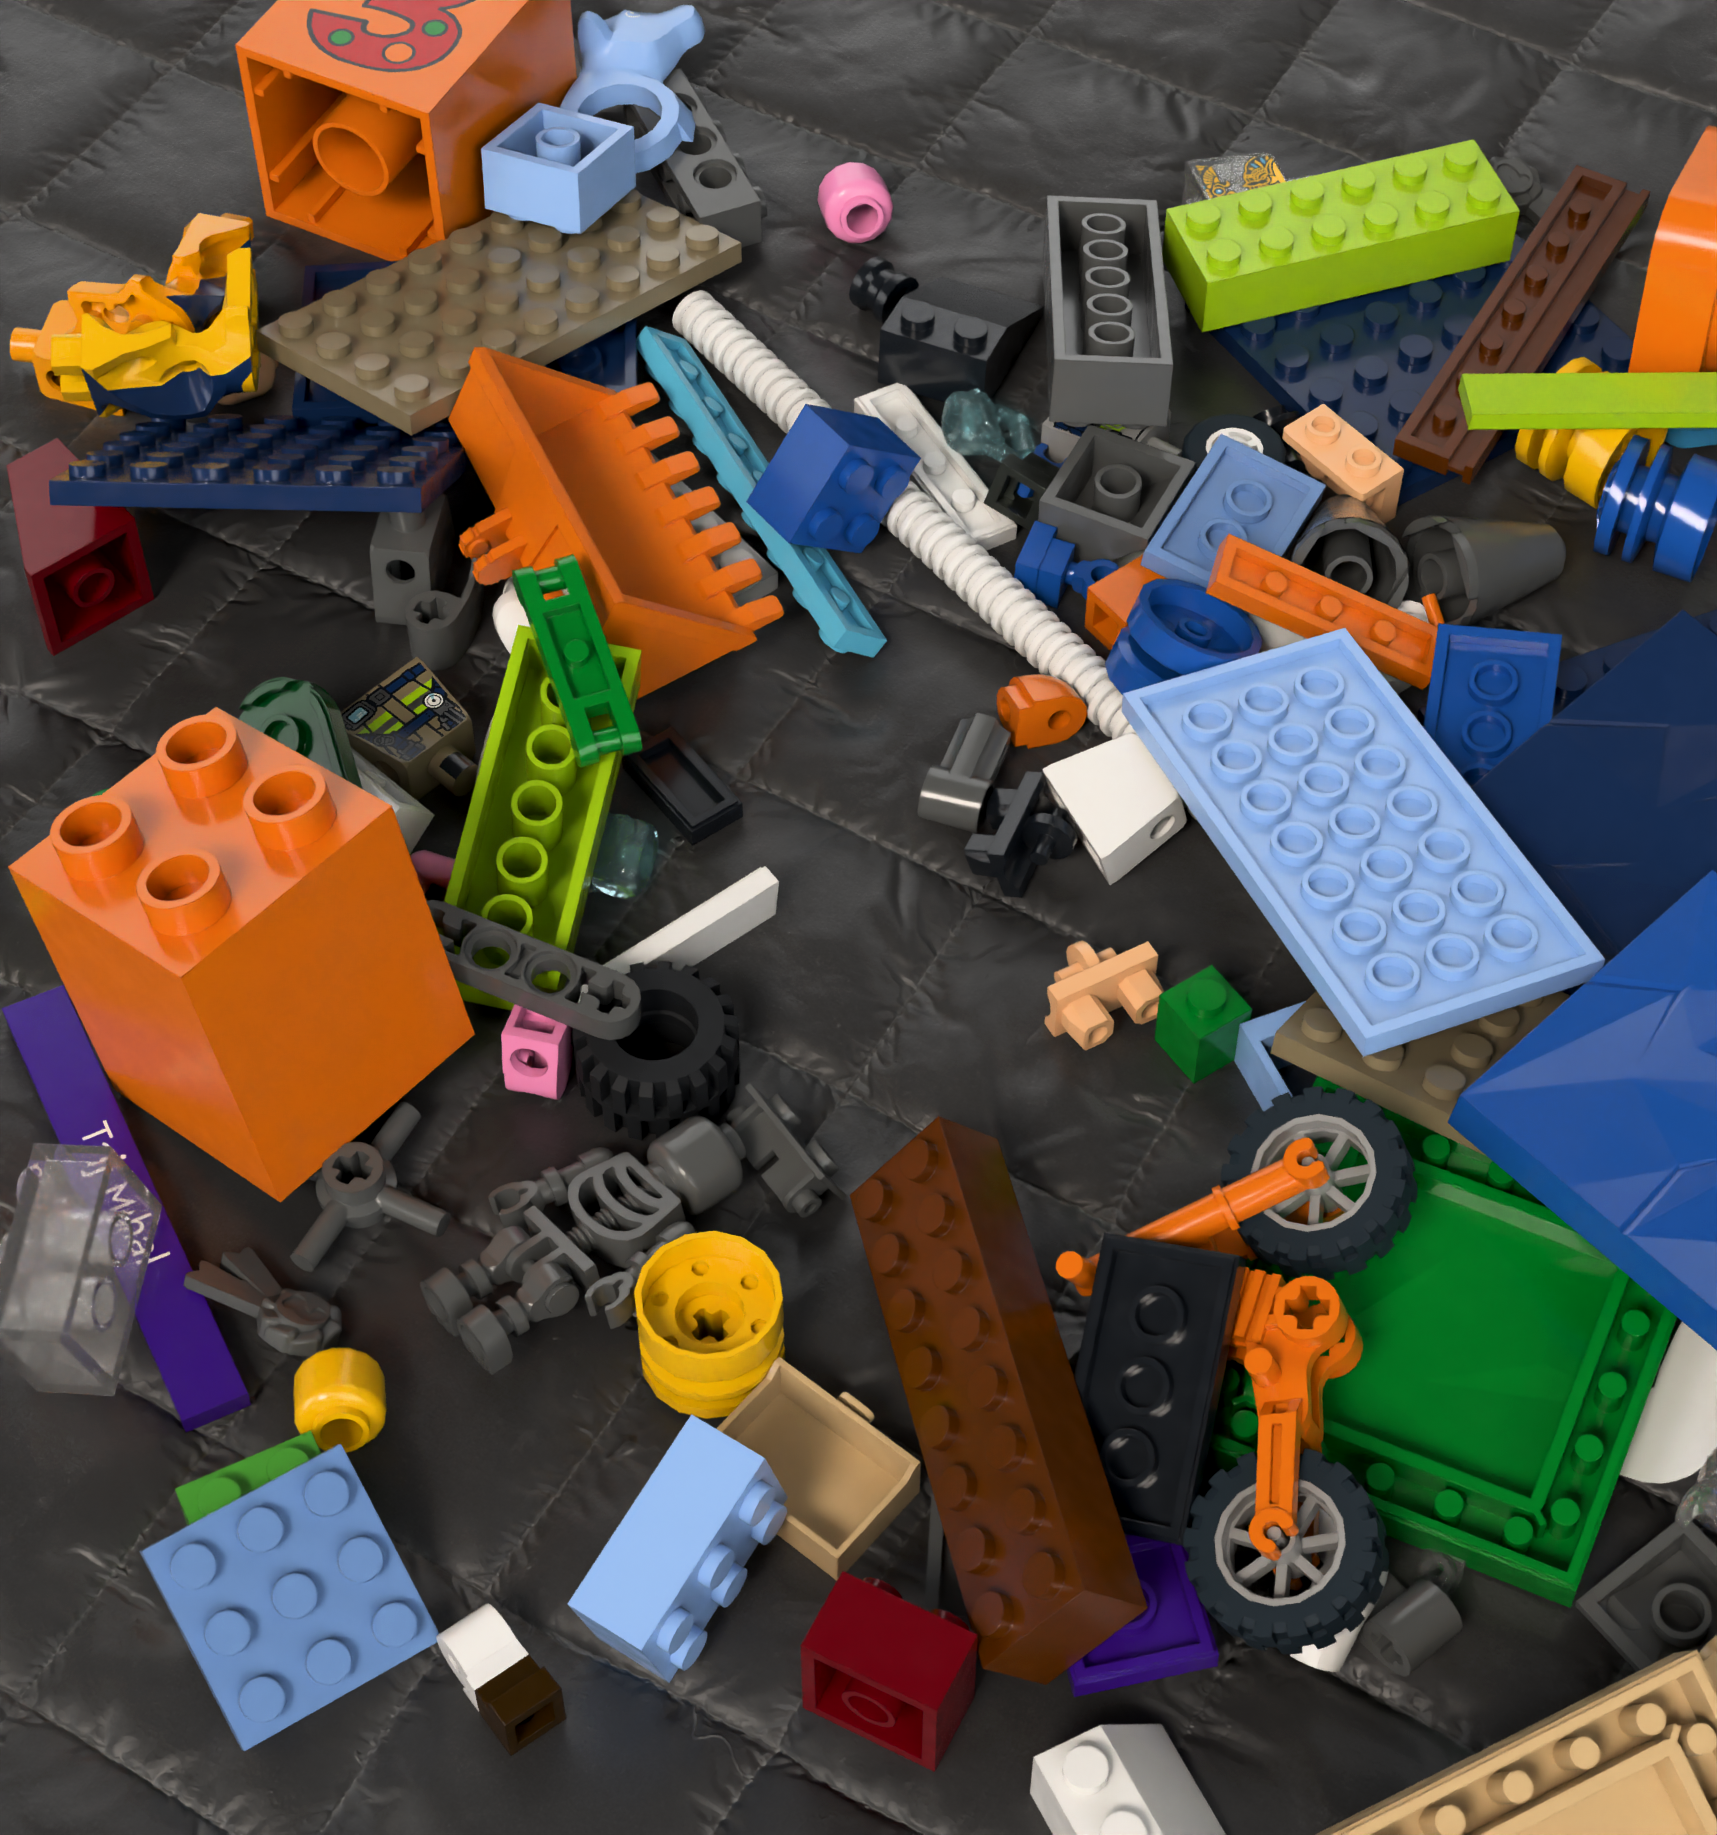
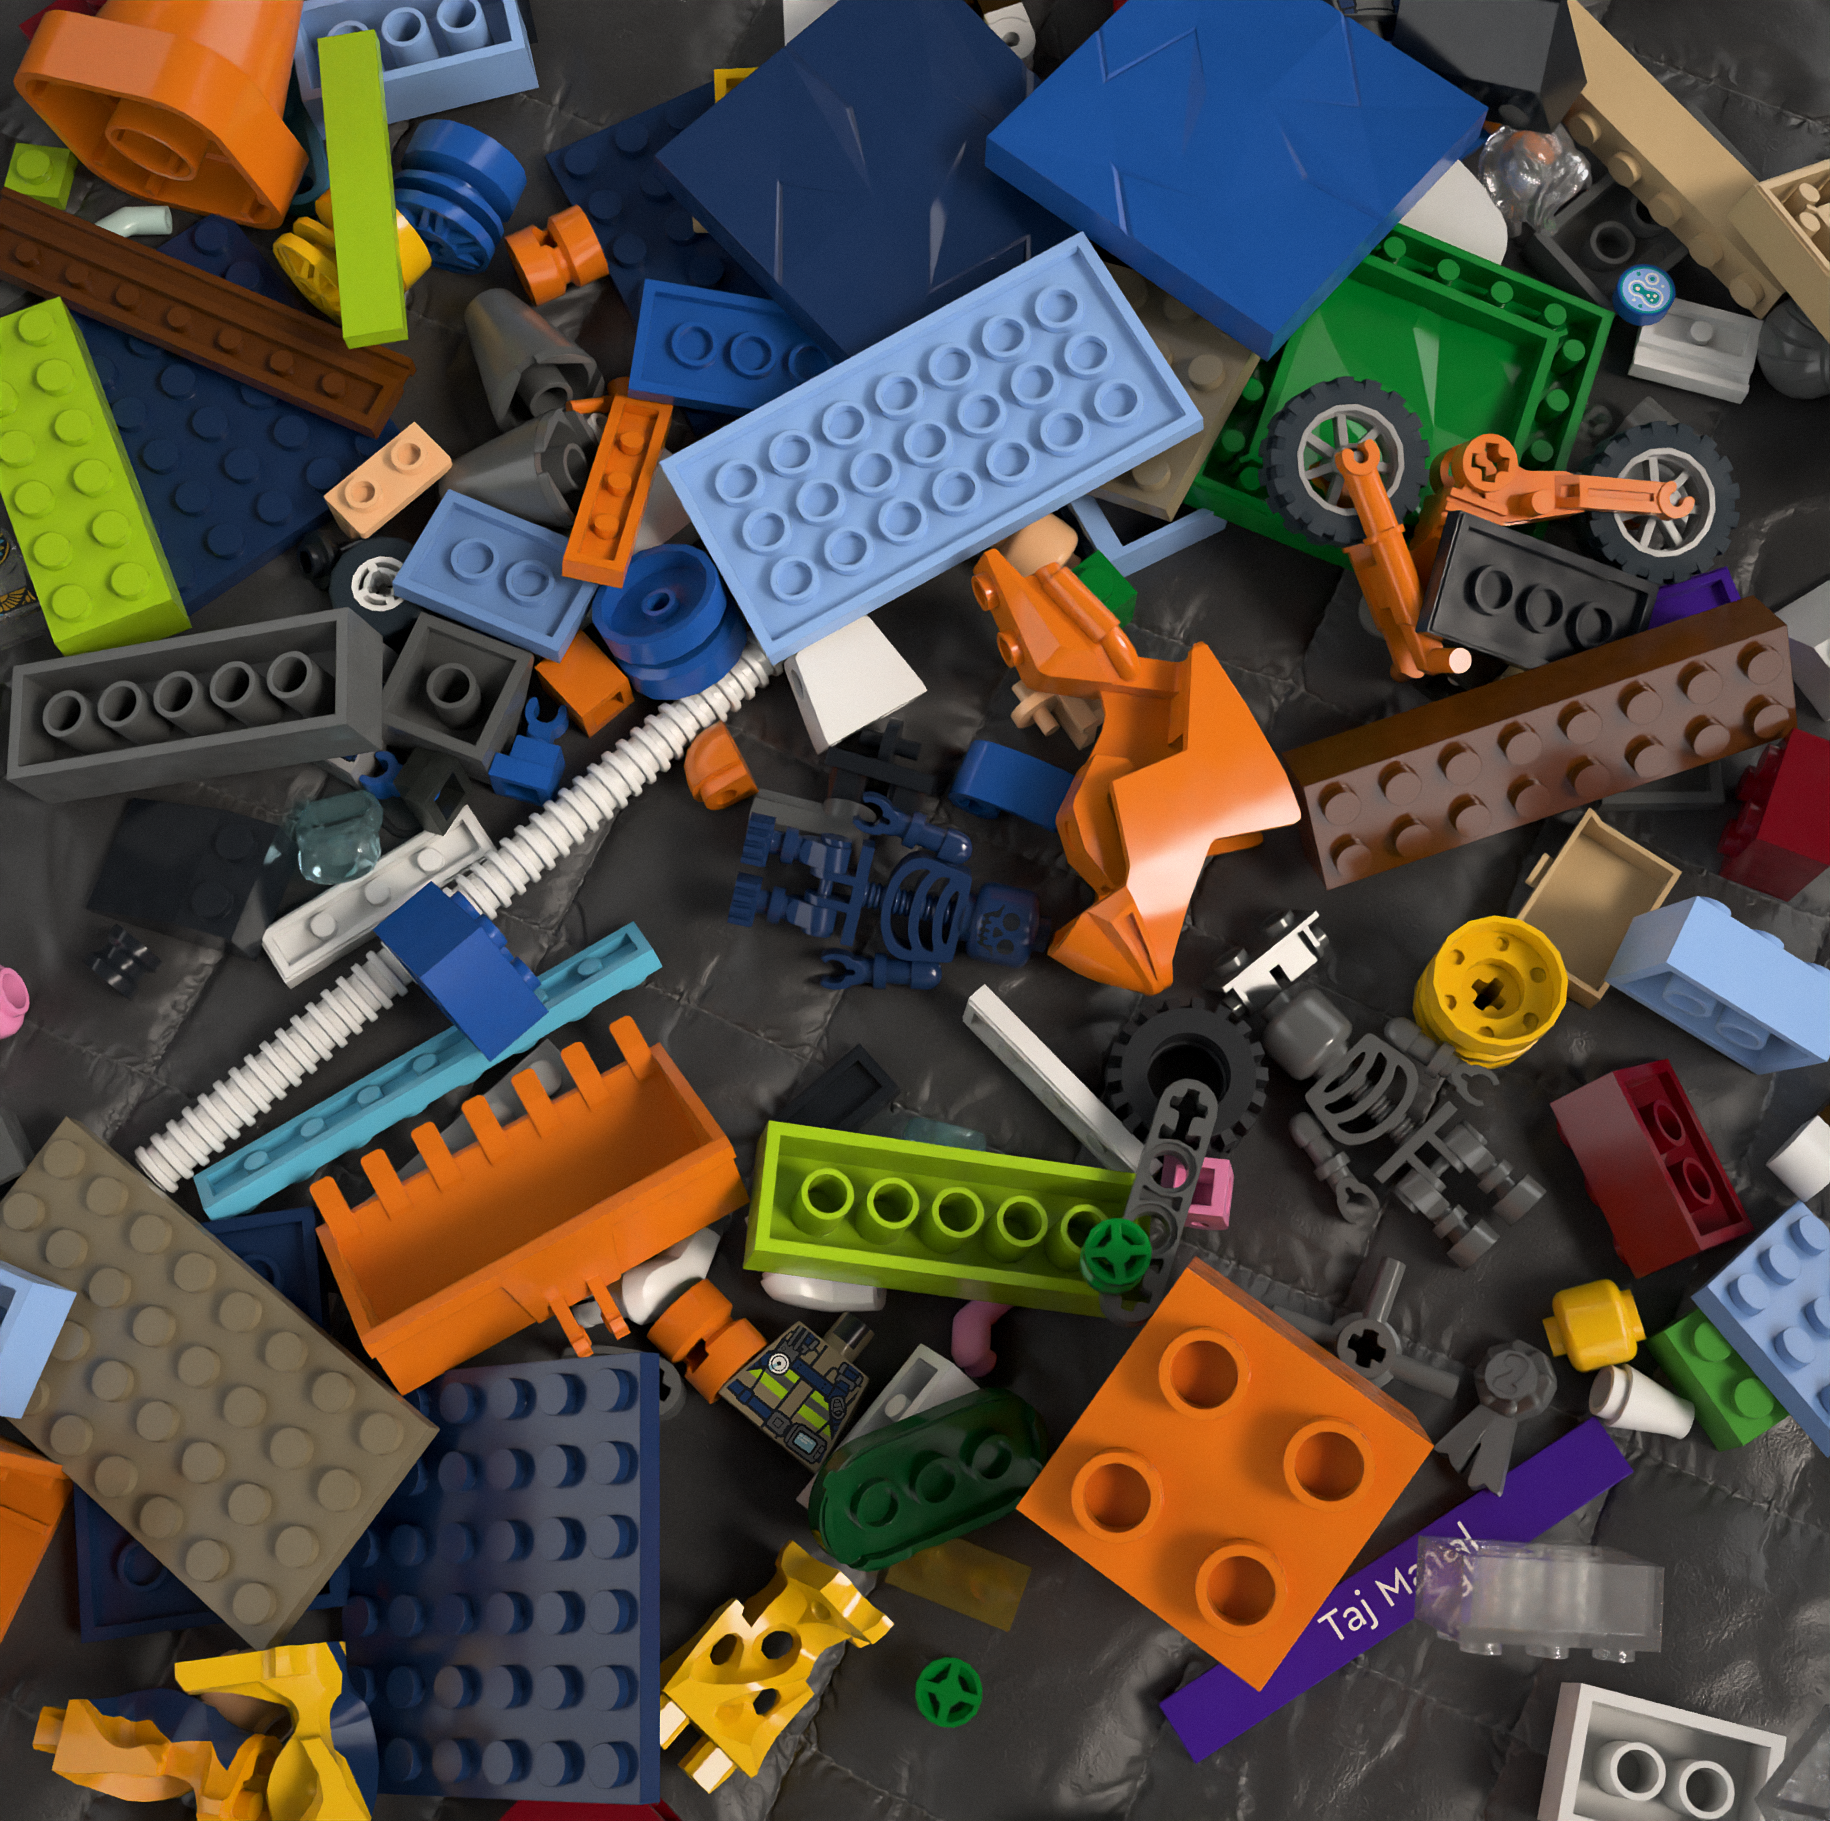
camera: 95 degrees left, 20 degrees up
(147, 649) = (718, 1692): none -> yellow hips
(253, 1424) = (1636, 1402): none -> white cone
(449, 885) = (1115, 1242): none -> green wheel
(472, 660) = (706, 1338): none -> orange wheel
(502, 1488) = (1650, 1167): none -> dark red slope
(577, 660) = (801, 1178): green plate -> none
(873, 838) = (996, 923): none -> dark blue piece
(969, 1027) = (1165, 784): none -> orange piece
(992, 933) = (1010, 781): none -> blue panel
(1268, 976) = (1039, 545): none -> light nougat head
(1537, 1677) = (1699, 350): none -> white plate
(1602, 1628) = (1643, 295): none -> tile
(1607, 595) = (556, 255): none -> orange wheel
(1623, 285) = (139, 221): none -> light aqua arm

